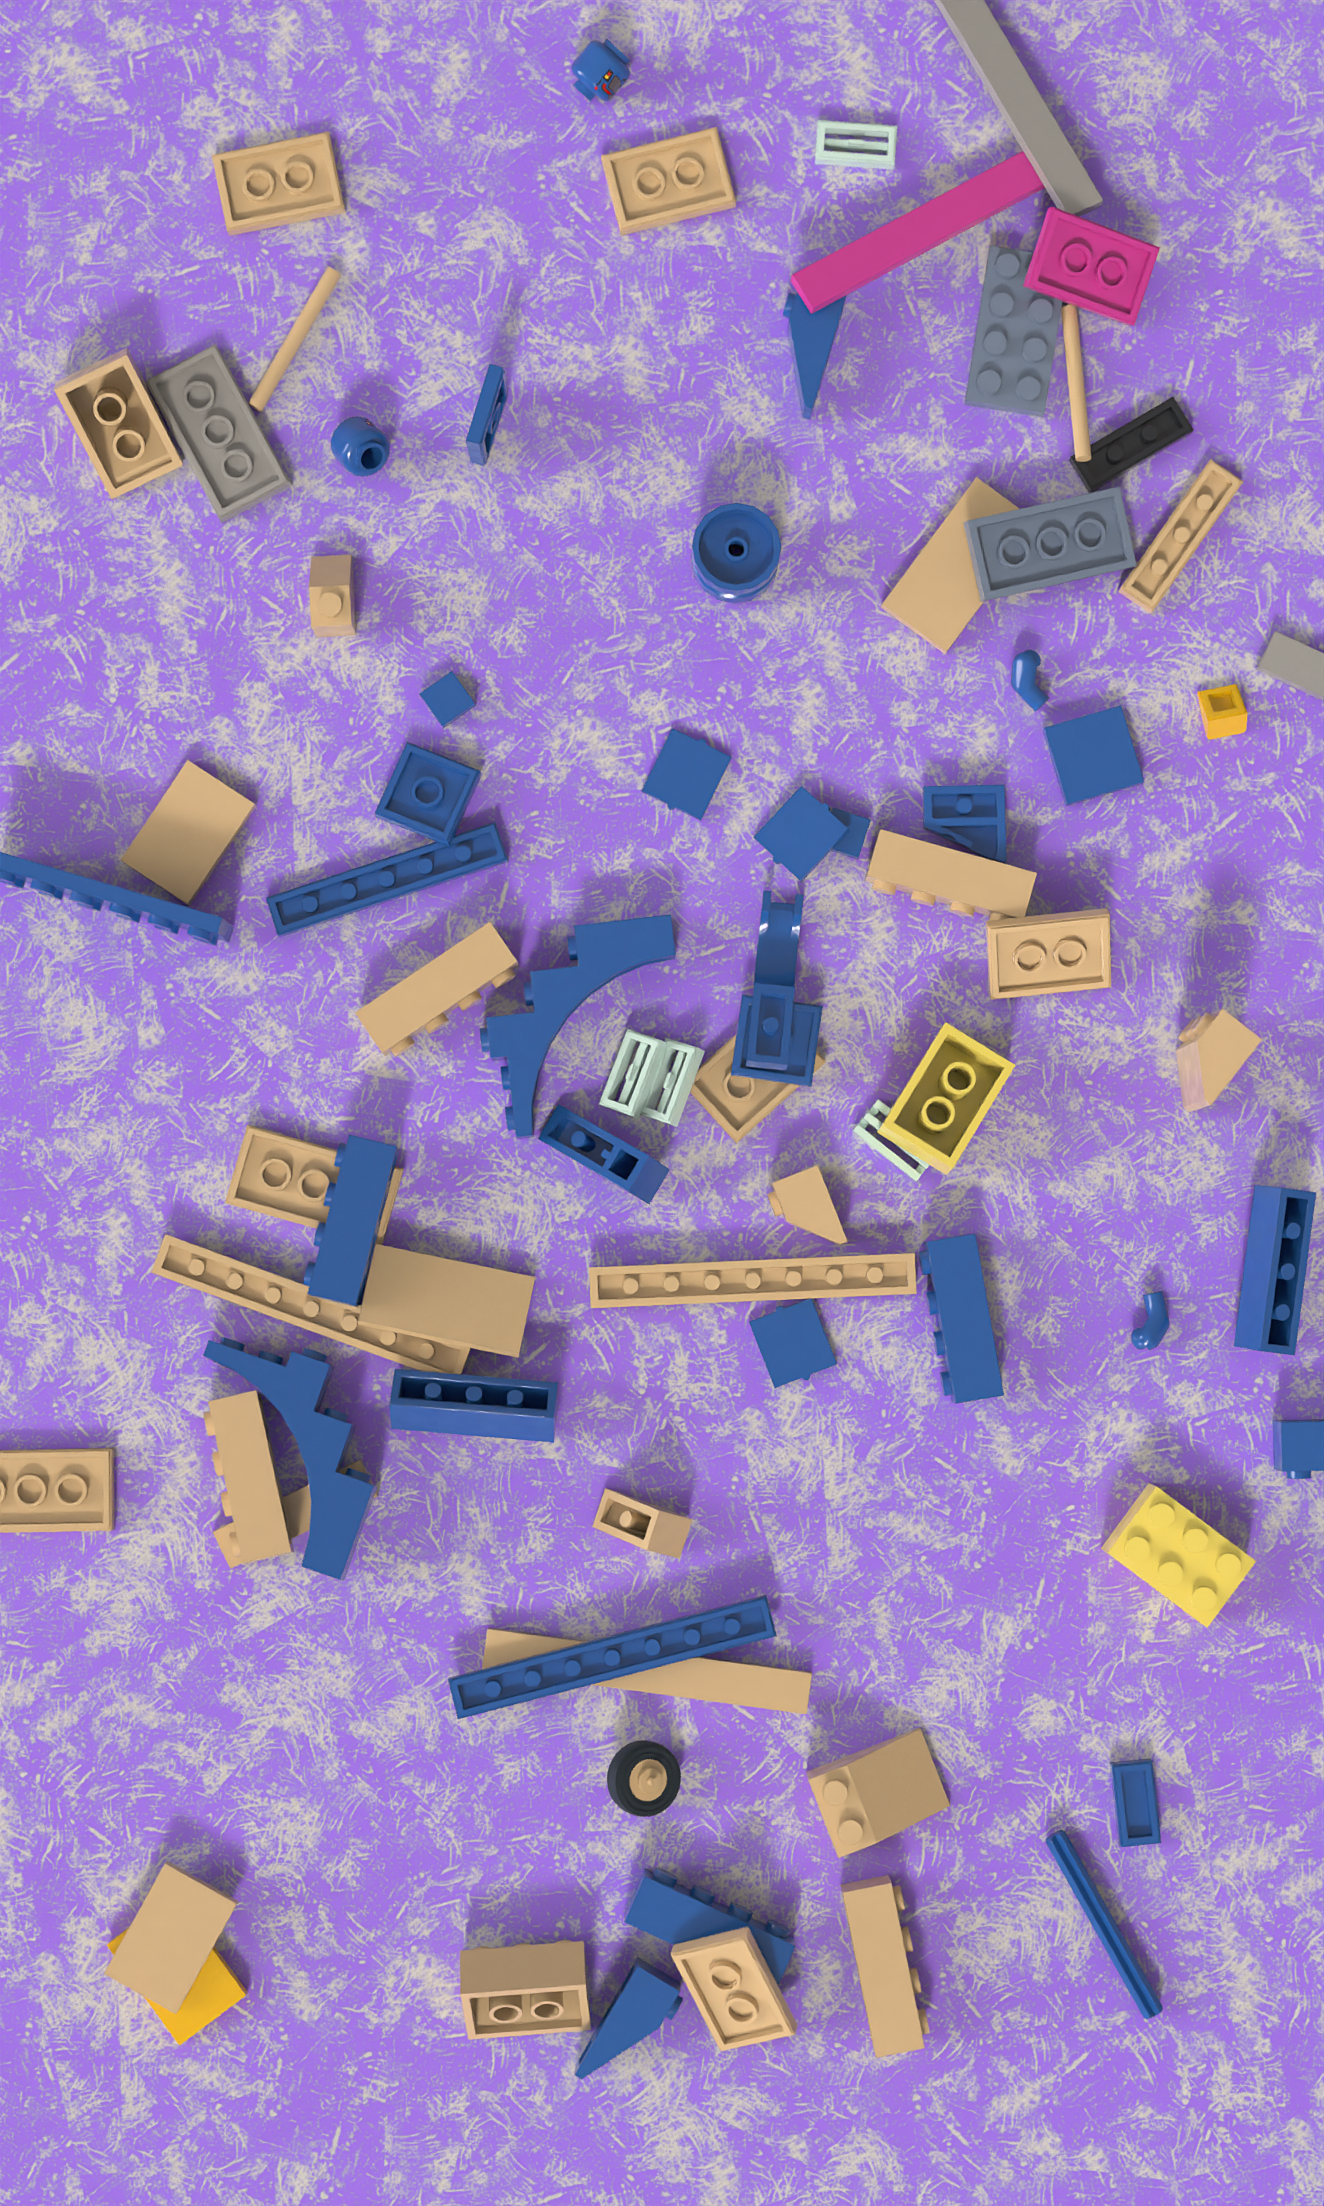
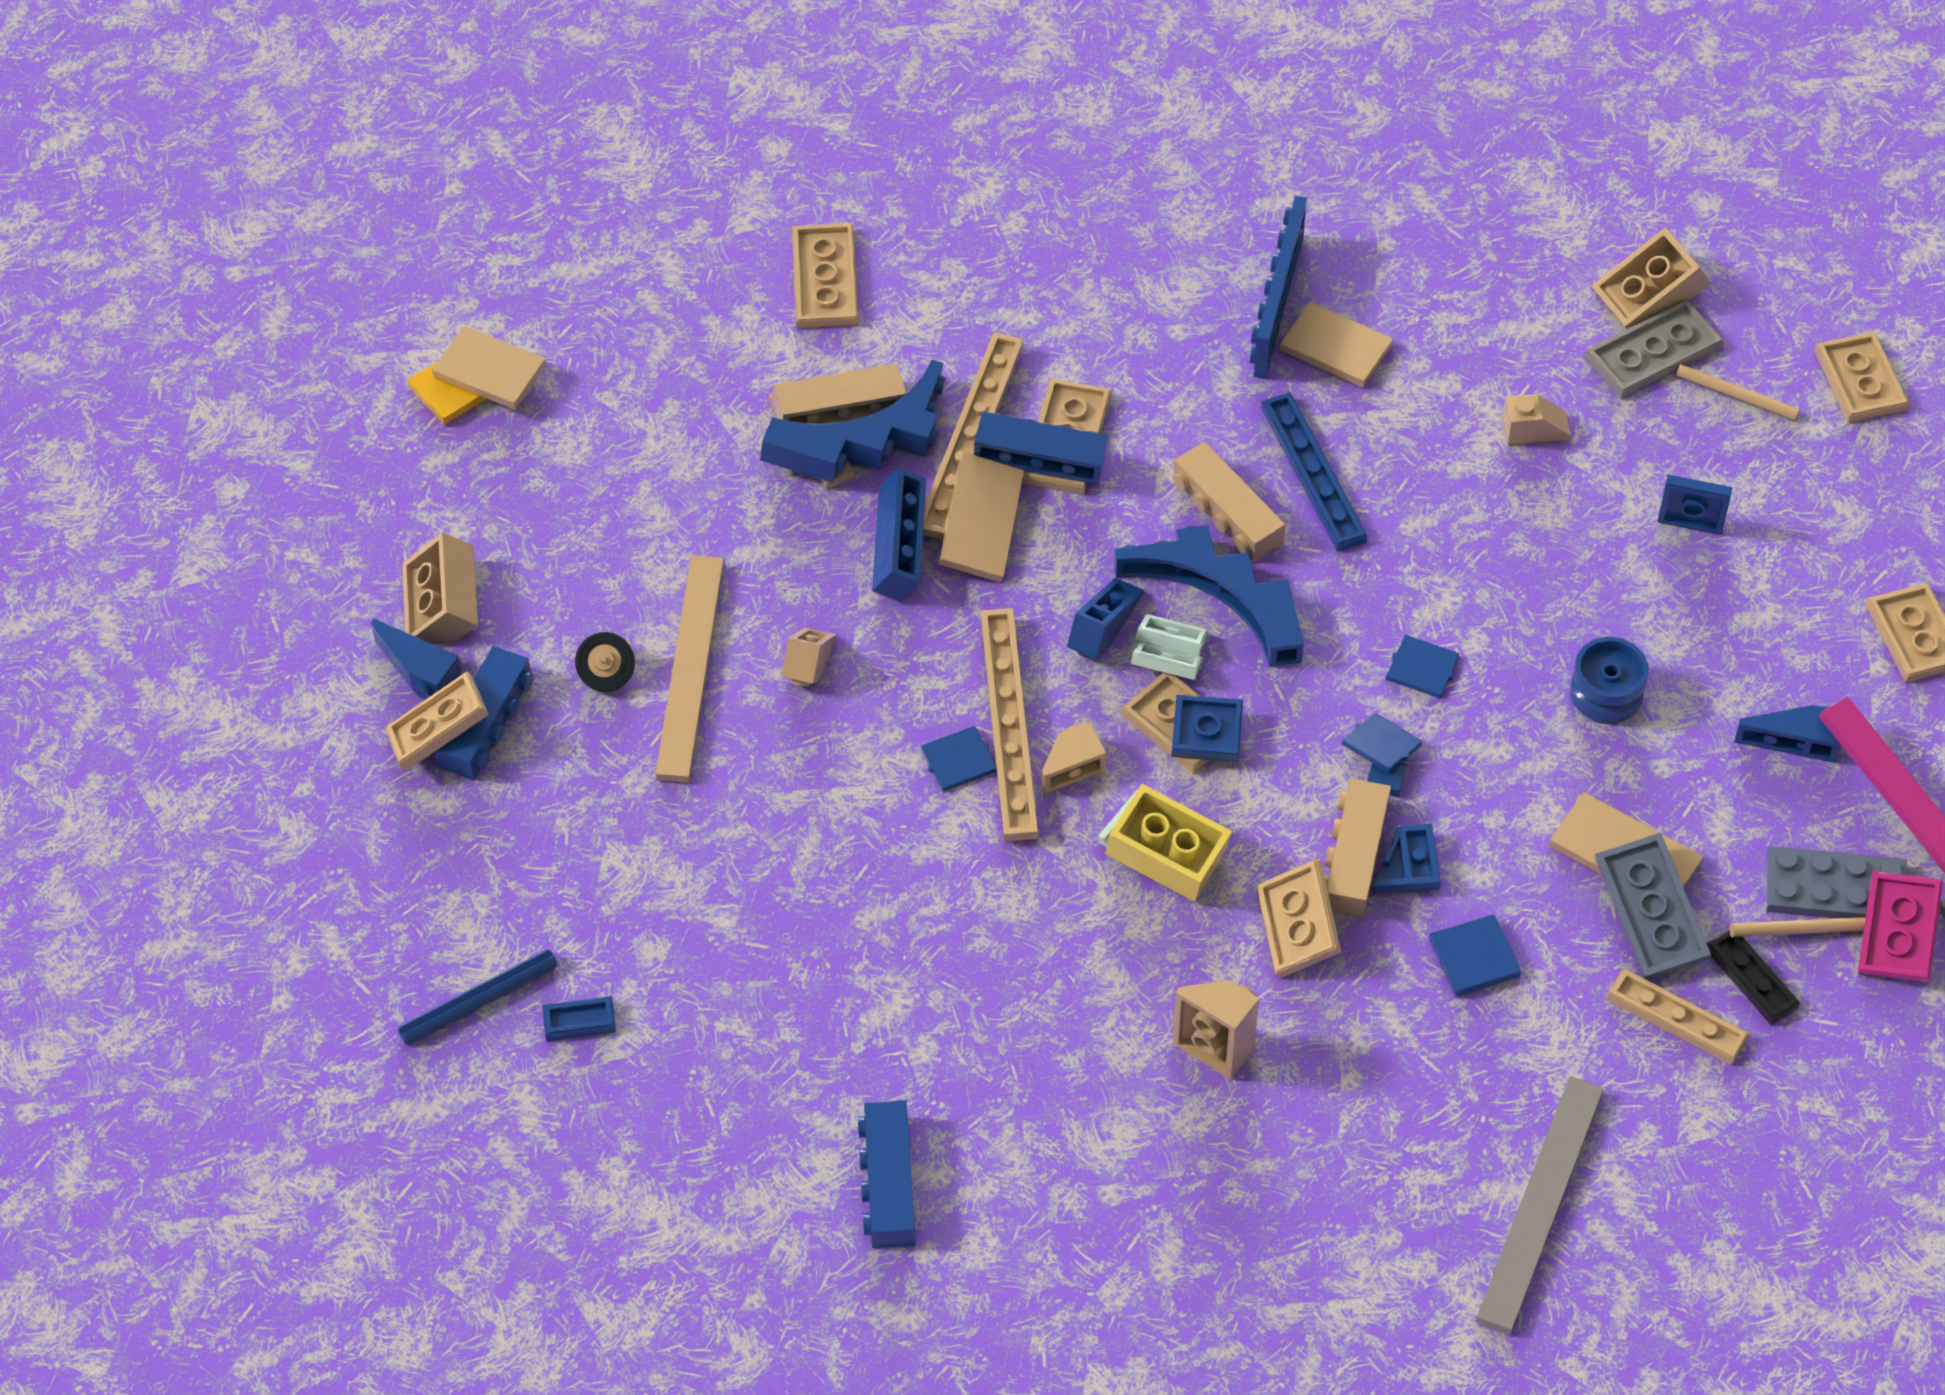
camera: 90 degrees right, 30 degrees down
(360, 446) = (1656, 429): blue head -> none
(428, 794) = (1384, 490): blue tile -> none
(447, 699) = (1462, 502): blue tile -> none
(612, 1657) = (702, 639): blue tile -> none
(774, 983) = (1241, 716): blue piece -> none
(877, 1791) = (591, 823): tan slope -> none
(883, 1966) = (449, 833): tan brick -> none
(962, 1319) = (985, 870): blue brick -> none
(1024, 677) = (1533, 899): blue arm -> none
(1156, 1324) = (986, 1017): blue arm -> none
(1178, 1554) = (790, 1034): light yellow brick -> none
(1222, 711) = (1526, 1053): yellow slope -> none
(1275, 1269) = (1038, 1095): blue brick -> none

